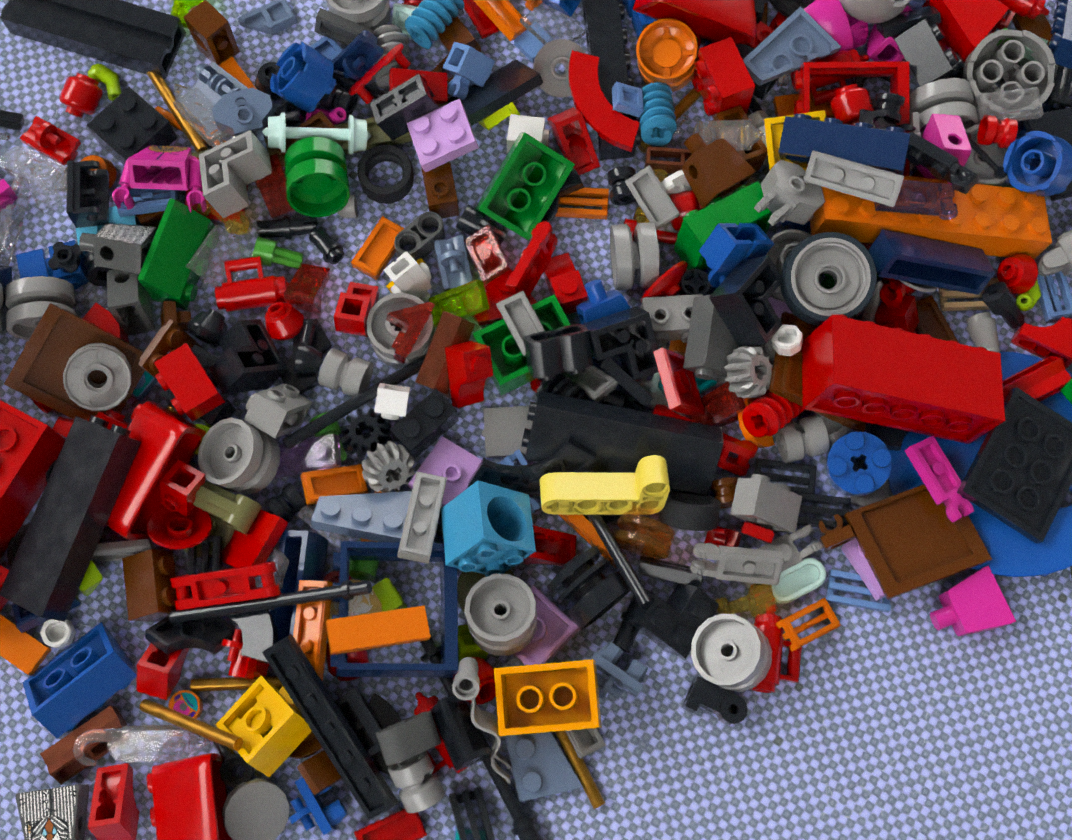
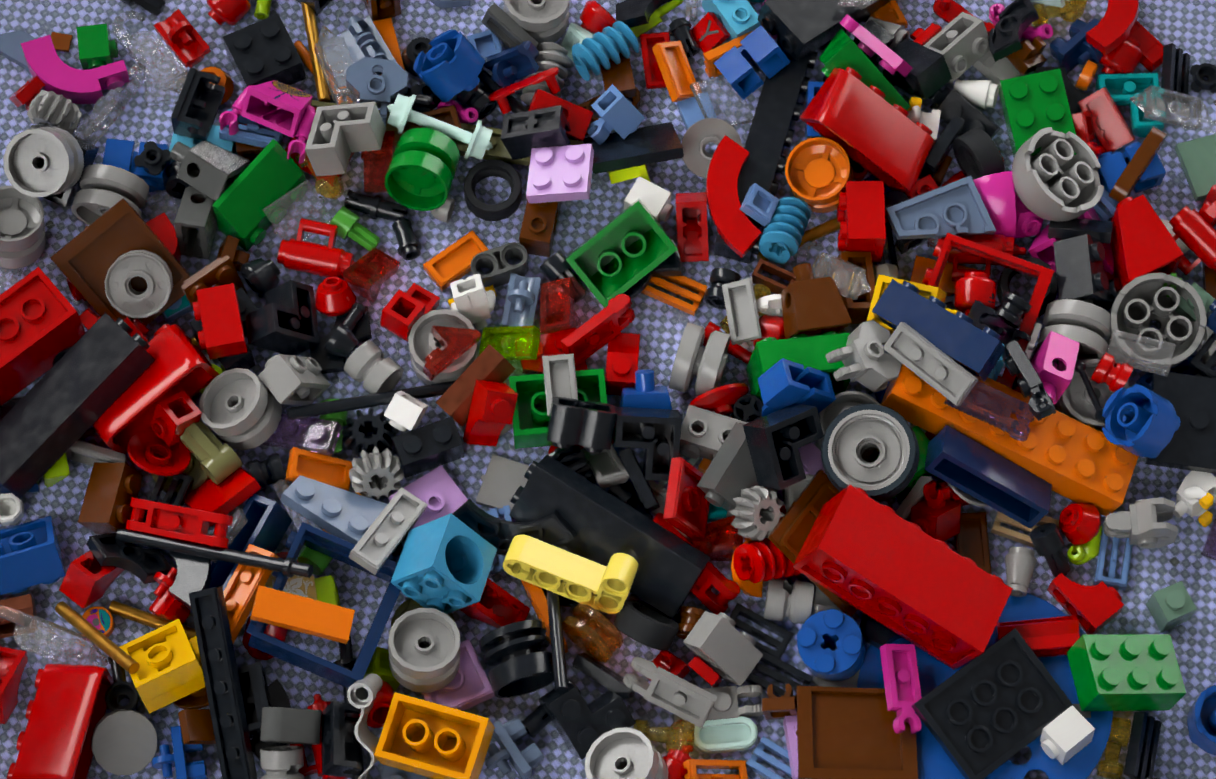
camera: 20 degrees right, 5 degrees down
(787, 340) = (805, 496): white tile -> none

